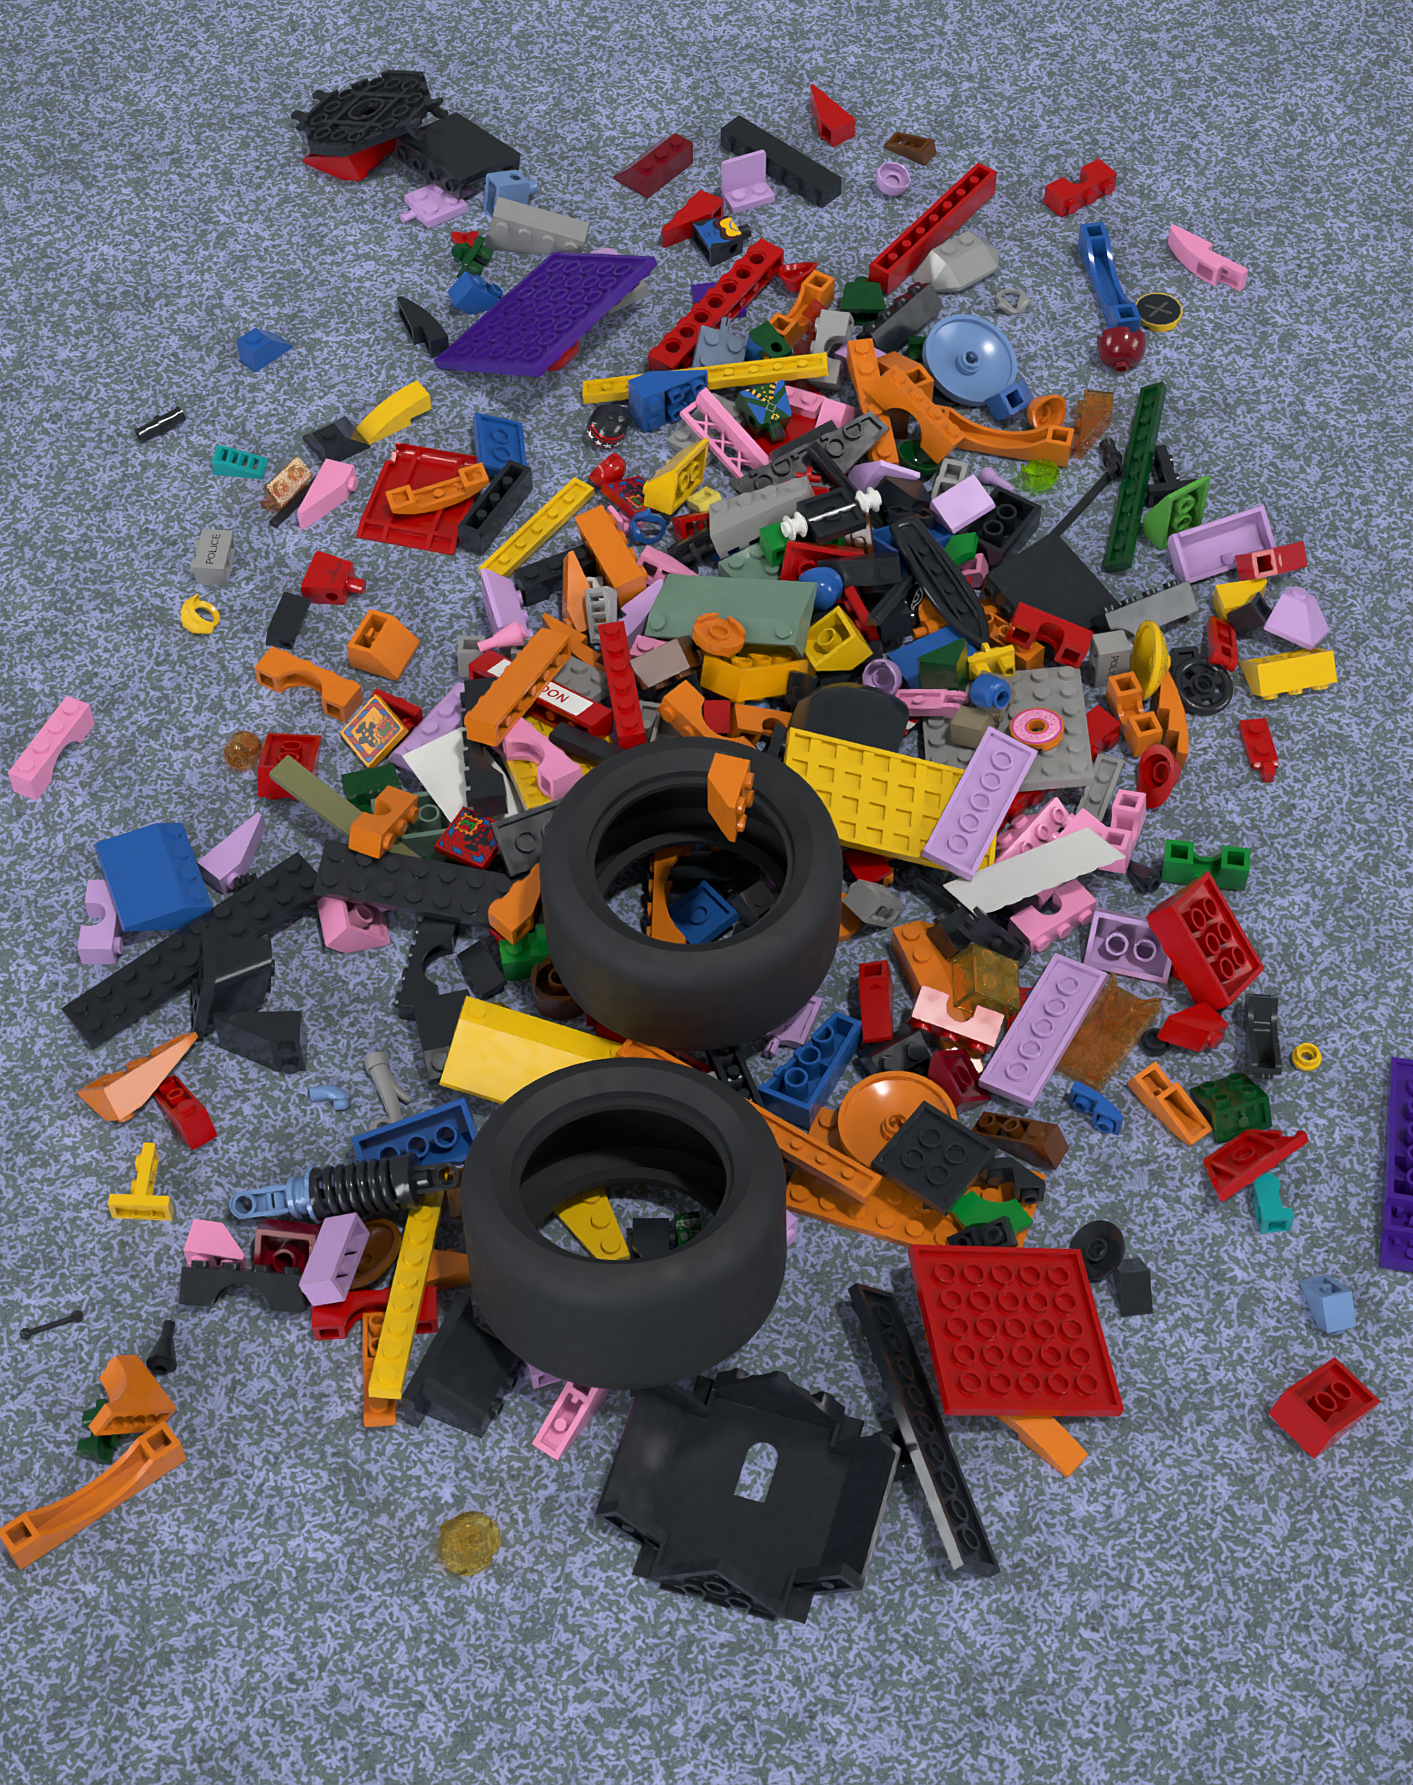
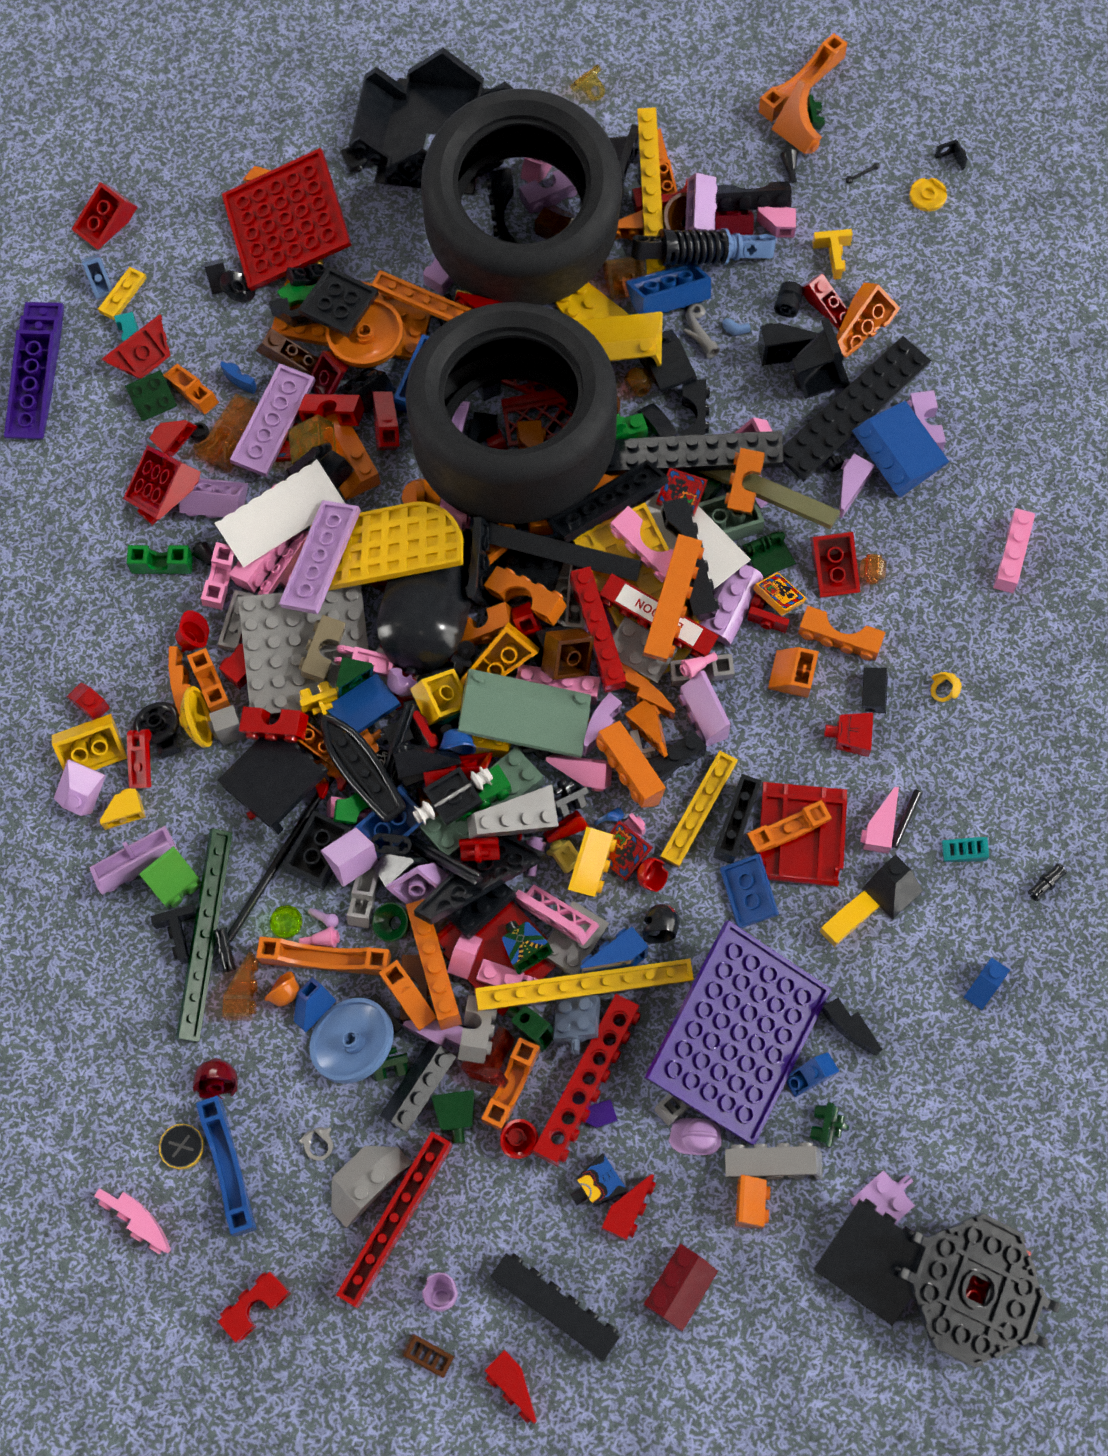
camera: 175 degrees right, 15 degrees up
(213, 557) = (953, 743): light grey brick -> none
(237, 1119) = (788, 299): none -> black wheel
(286, 484) = (917, 820): clear orange bracket -> none
(470, 237) = (842, 1156): red piece -> none
(507, 185) = (819, 1206): medium blue torso -> none
(519, 908) = (637, 433): orange slope -> none
(572, 197) = (751, 1202): none -> orange slope
(593, 604) = (627, 707): light grey slope -> none
(718, 635) = (528, 668): orange tile -> none
(730, 793) = (485, 404): orange slope -> none
(745, 182) = (581, 1259): lavender bracket -> none
(873, 903) = (393, 489): light grey brick -> none
(923, 1432) = (350, 188): black plate -> none
(938, 432) = (388, 942): orange arch -> none
(990, 692) = (315, 638): blue head -> none
(998, 460) = (326, 938): none -> bright pink cone
(1042, 718) = (281, 623): tile -> none
(1158, 606) = (198, 774): brick -> none
(1250, 614) = (112, 785): black panel -> none
(1259, 747) = (115, 677): red hinge -> none
(1262, 1040) = (127, 430): black arch -> none
(1271, 561) = (96, 841): red slope -> none
(1284, 1269) = (122, 293): none -> yellow plate
(1294, 718) = (88, 701): none -> red slope
(1310, 1051) = (98, 429): yellow plate -> none

